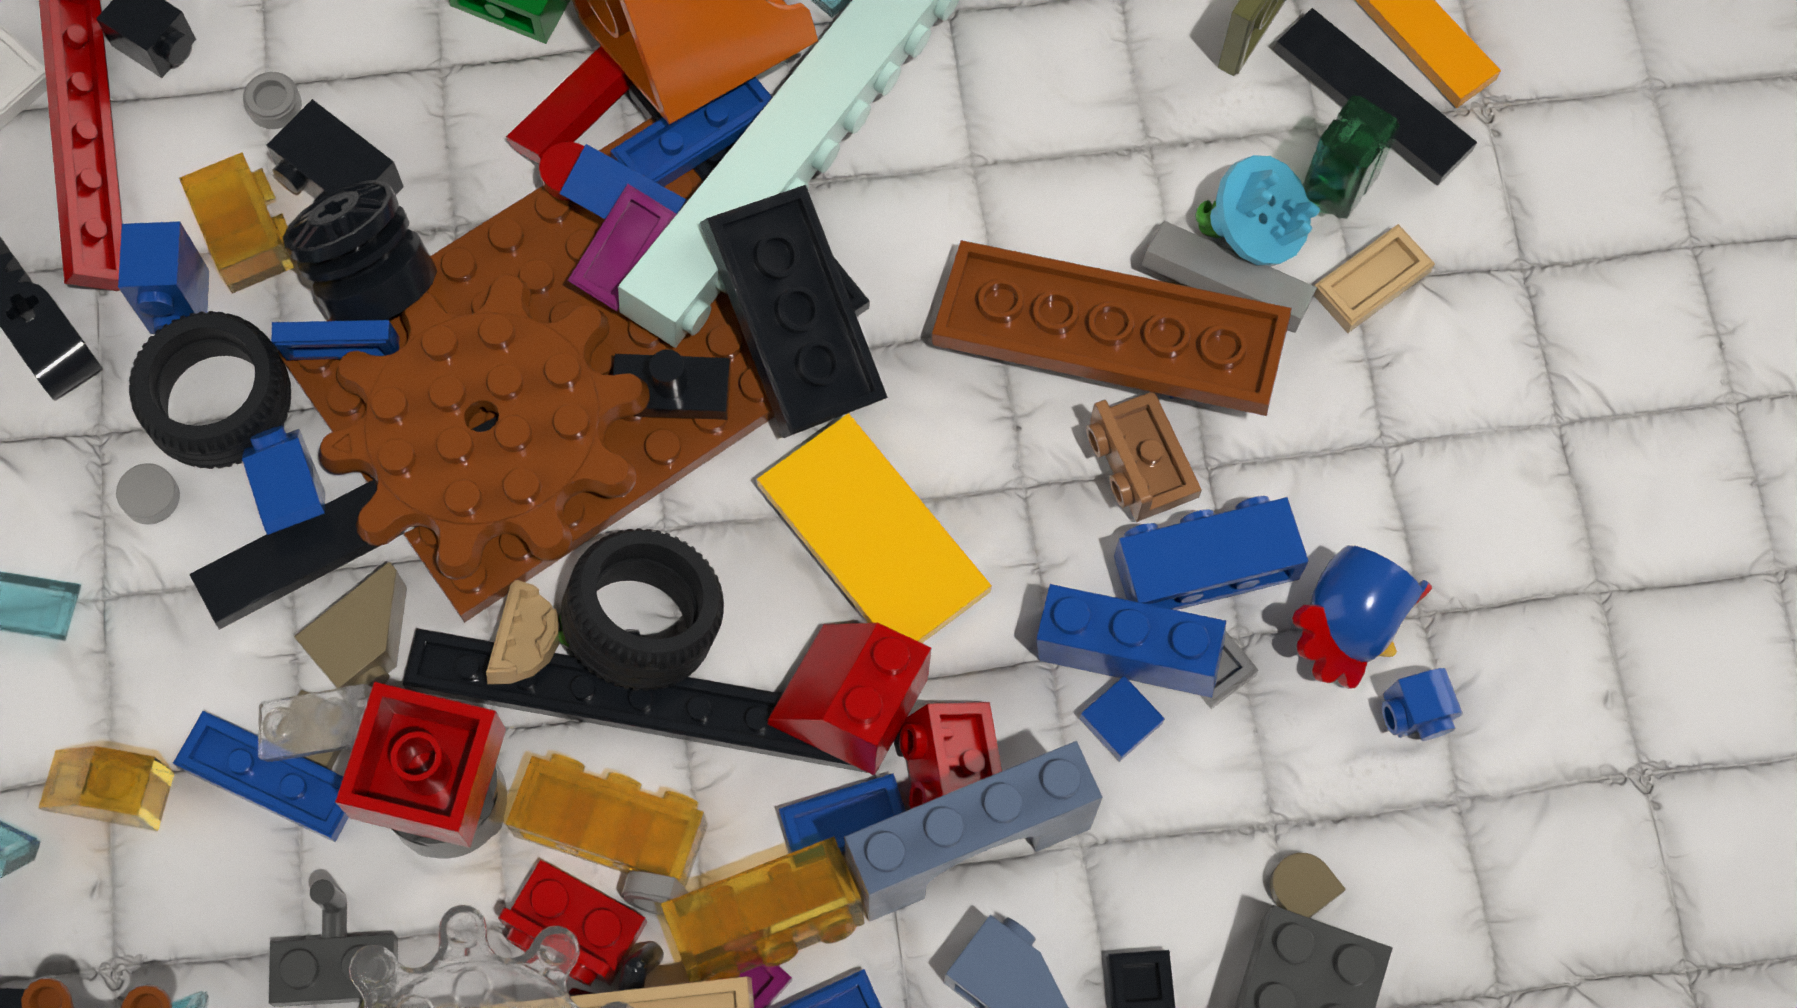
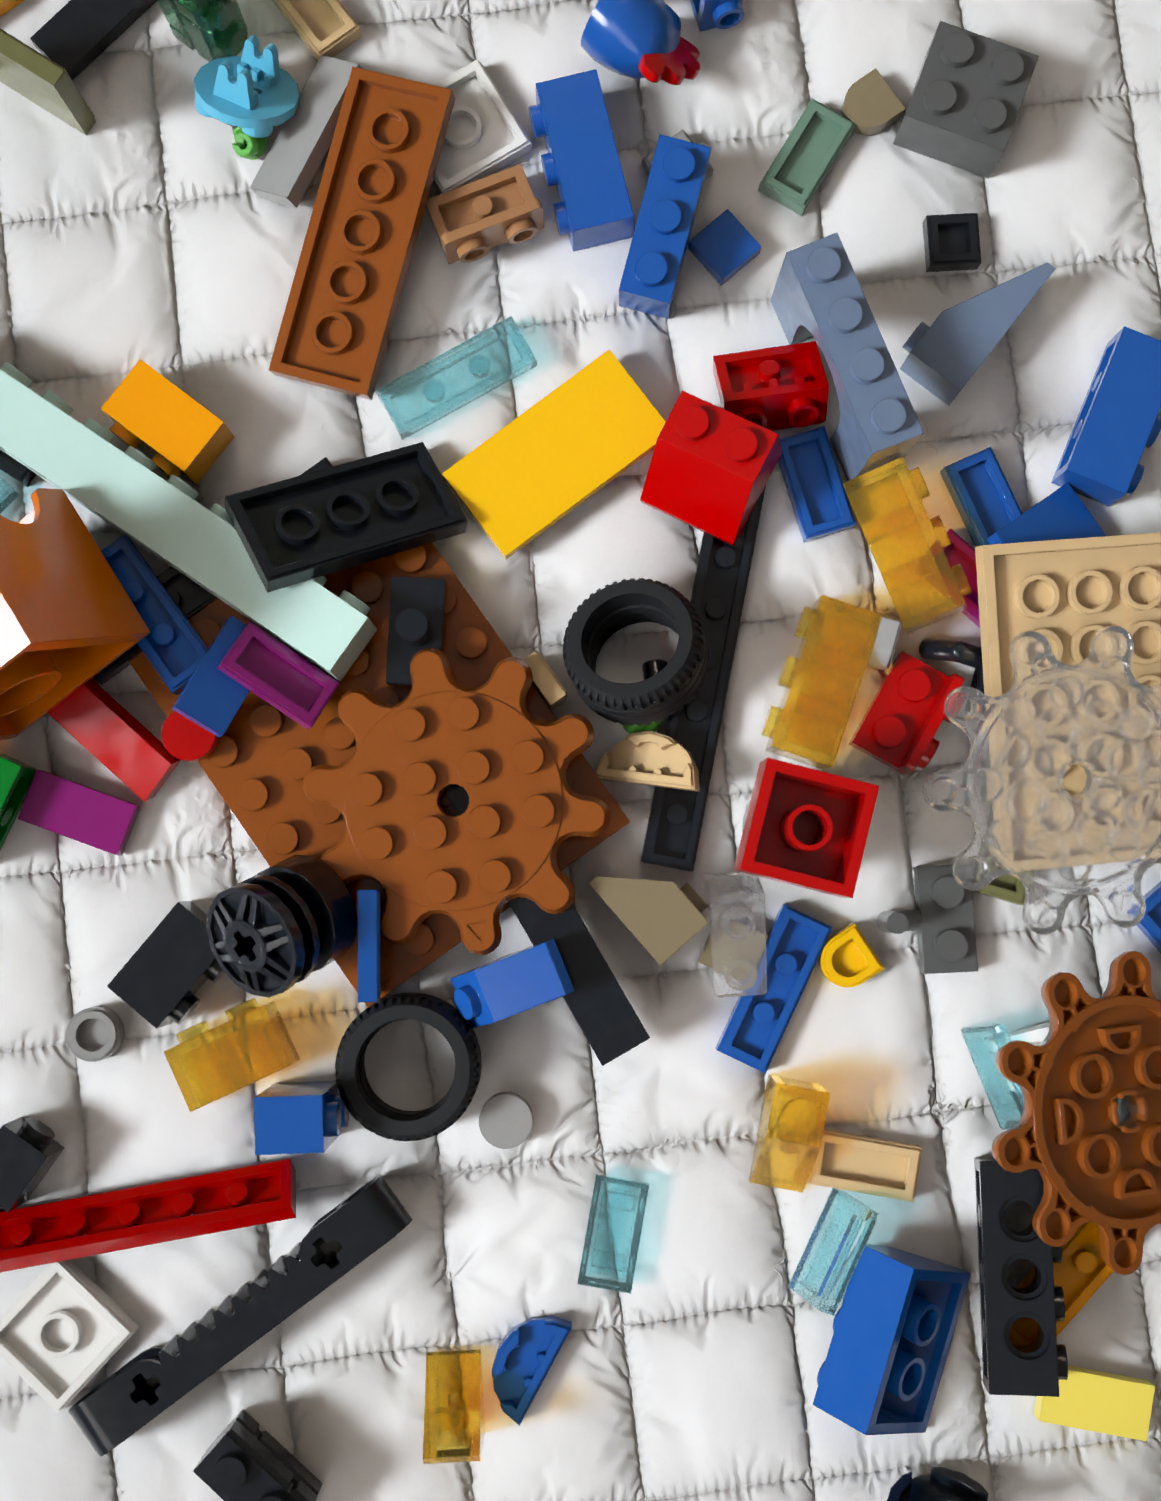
camera: 90 degrees left, 15 degrees up
(62, 876) = (867, 1165): none -> tan tile
(295, 859) = (848, 958): none -> yellow tile
(498, 79) = (79, 812): none -> magenta tile
(623, 514) = (546, 681): none -> tan tile
(900, 145) = (167, 422): none -> light orange brick
(961, 433) = (456, 377): none -> clear light blue tile
(1236, 813) = (806, 157): none -> sand green tile
(1245, 450) = (480, 131): none -> white tile

